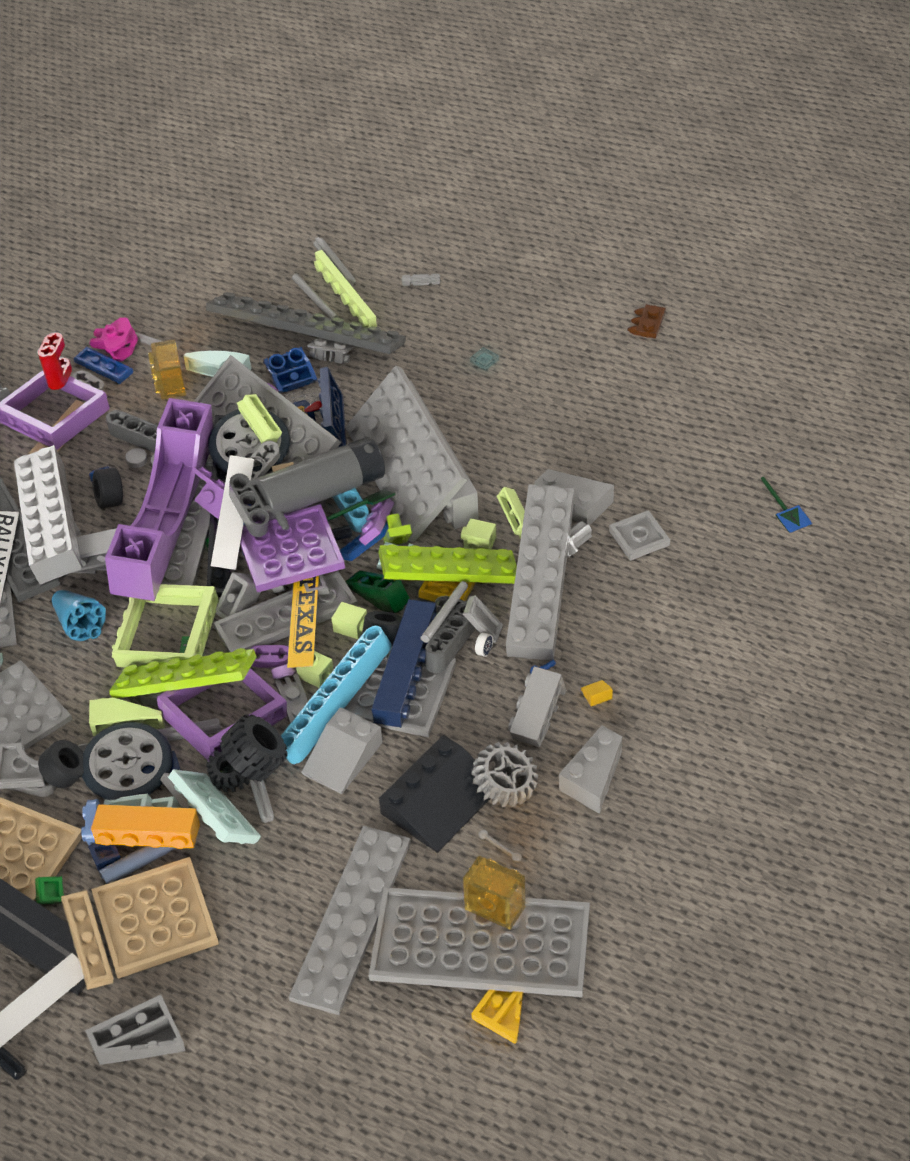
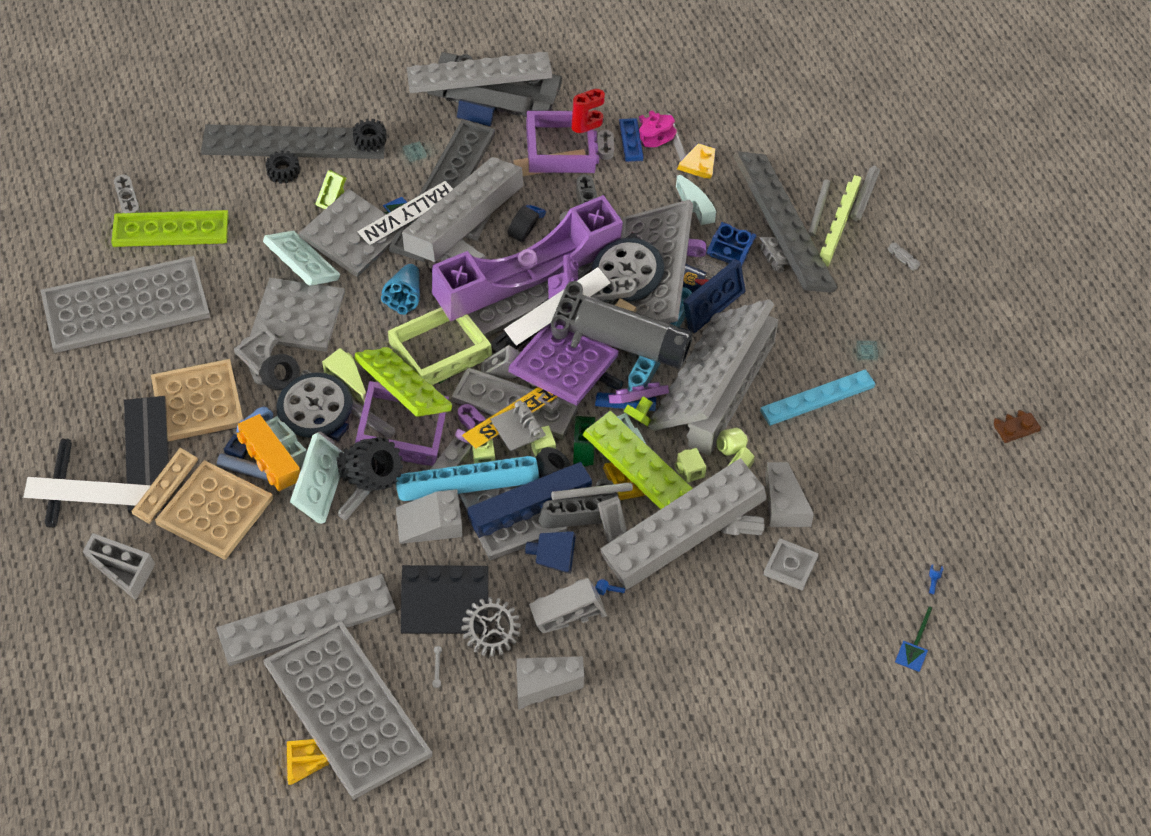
camera: 45 degrees right, 5 degrees up
(49, 890) = (185, 438): green tile -> none
(158, 501) = (527, 259): none -> lavender tile
(166, 369) = (655, 176): clear yellow brick -> none
(184, 335) = (699, 161): none -> yellow wing
(259, 418) = (644, 258): yellowish green piece -> none
(324, 620) = (518, 426): none -> light grey hinge
(372, 499) = (656, 378): dark green piece -> none
(472, 680) = (554, 550): none -> dark blue torso
(483, 644) = (596, 536): white tile -> none
(487, 494) = (731, 441): none -> yellowish green head
(494, 892) = (380, 686): clear yellow brick -> none
(496, 417) = (817, 397): none -> medium azure plate
(597, 692) = (620, 636): yellow slope -> none
(735, 456) = (934, 575): none -> blue hand

